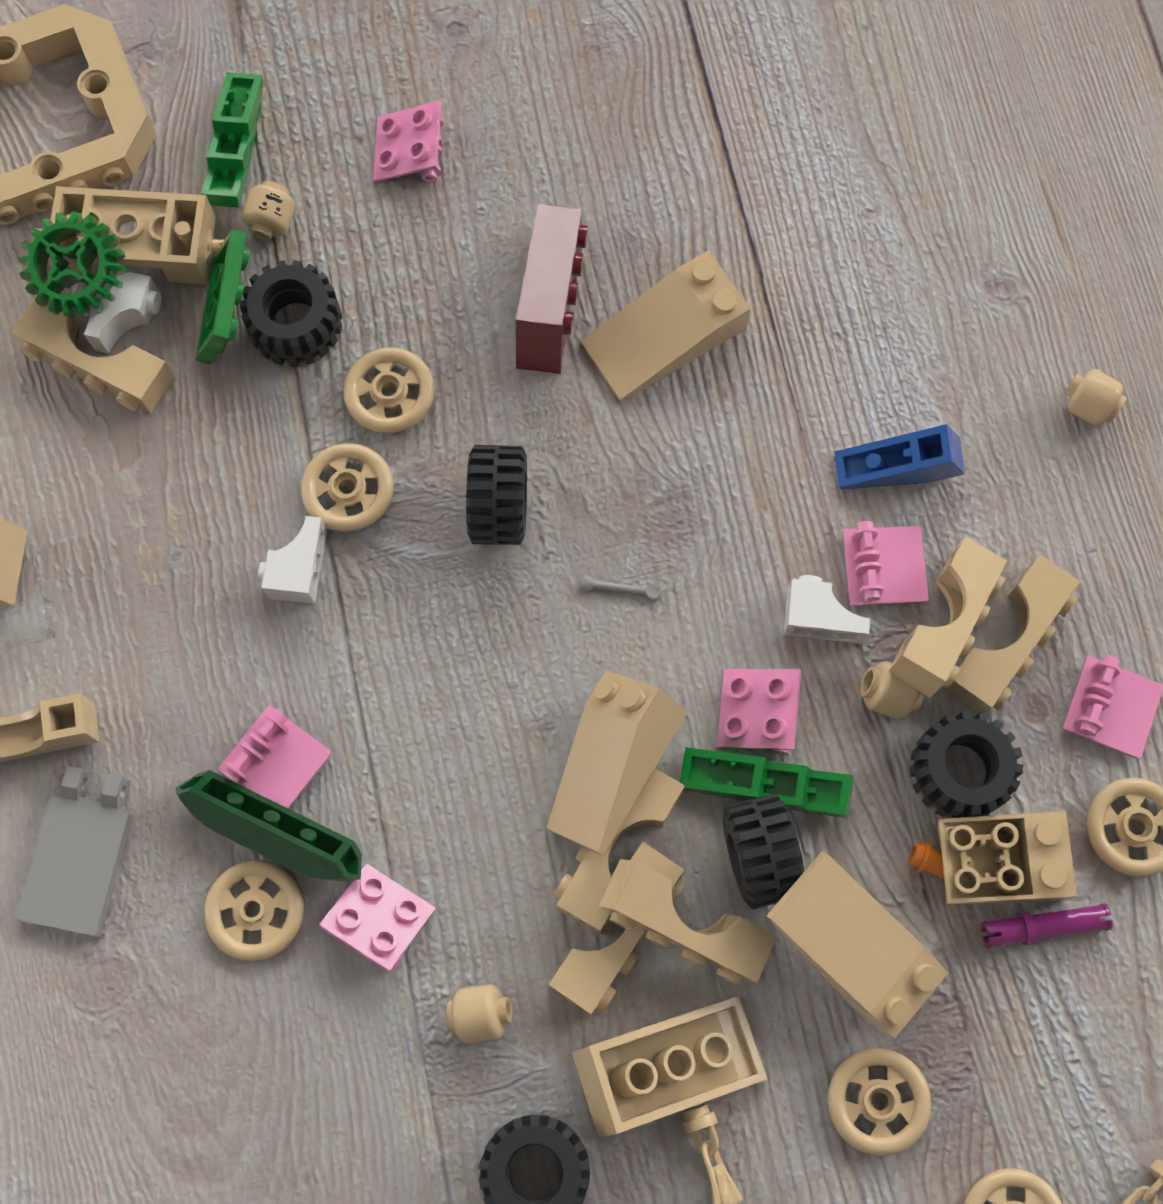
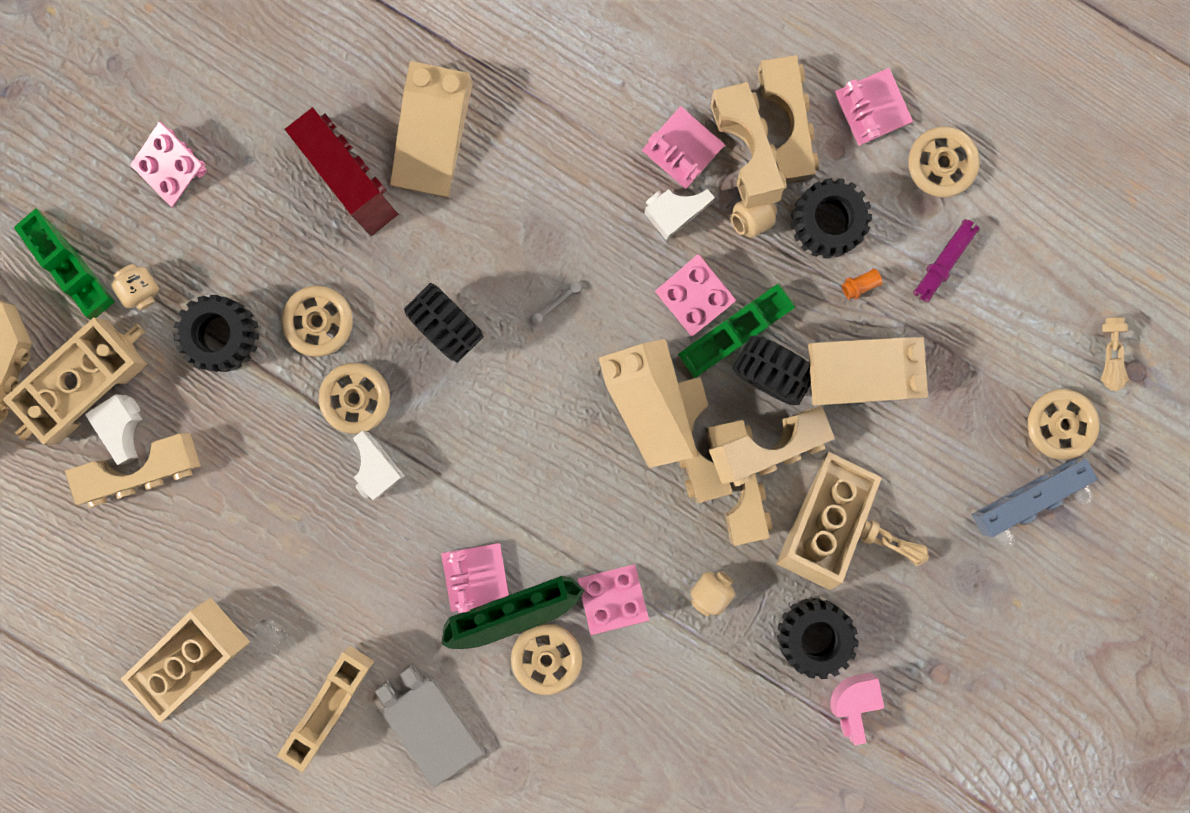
camera: 50 degrees left, 15 degrees up
(61, 276) = (69, 448): green gear -> none
(222, 295) = (169, 364): green plate -> none
(844, 1113) = (941, 408): tan plate -> none
(902, 460) = (634, 78): blue slope -> none
(1007, 859) = (897, 247): tan slope -> none

